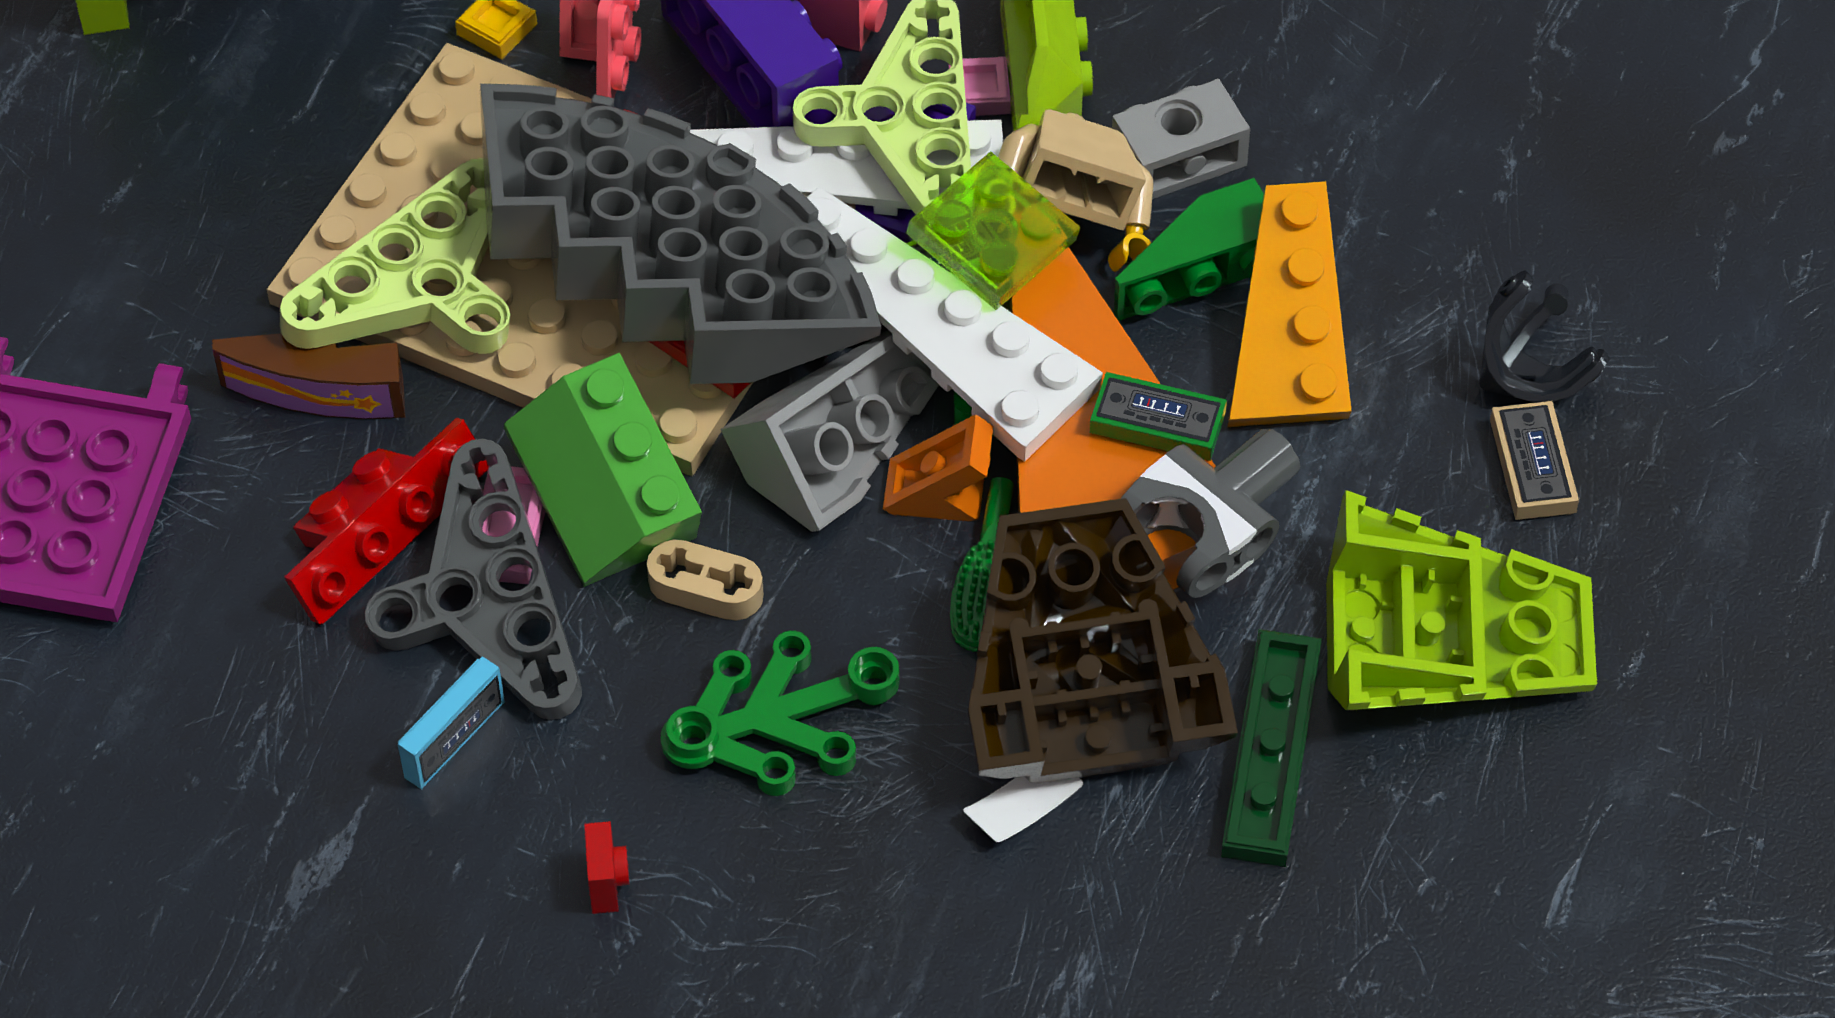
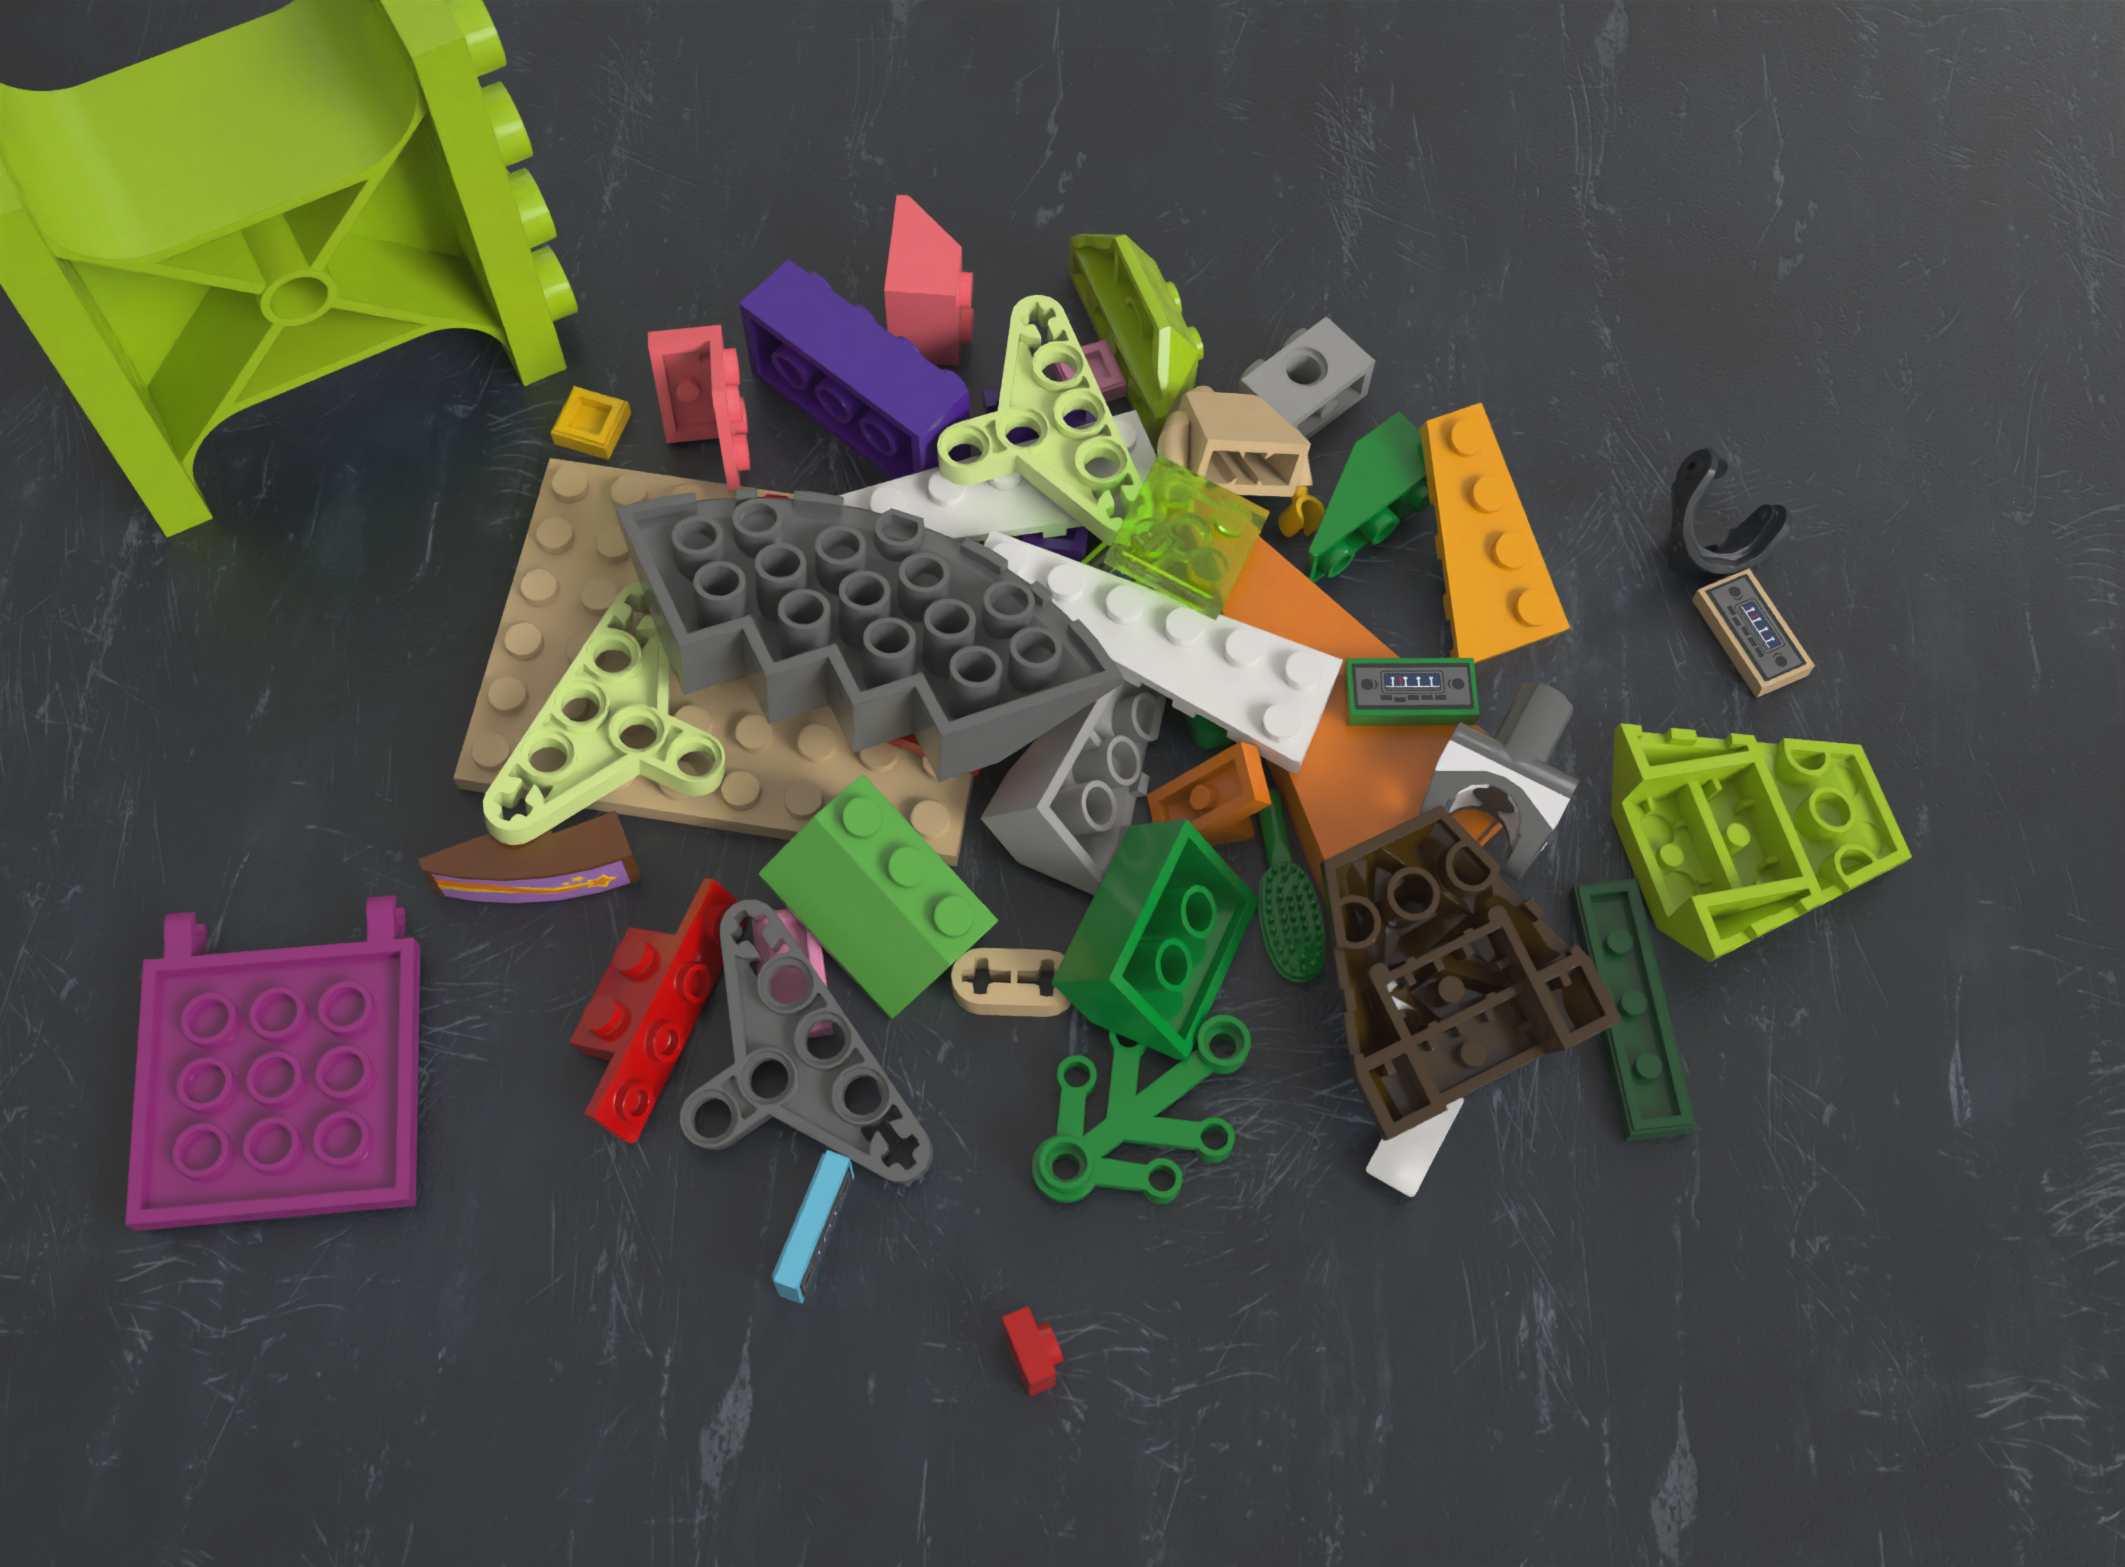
camera: 20 degrees left, 10 degrees up
(846, 569) = (1157, 938): none -> green slope

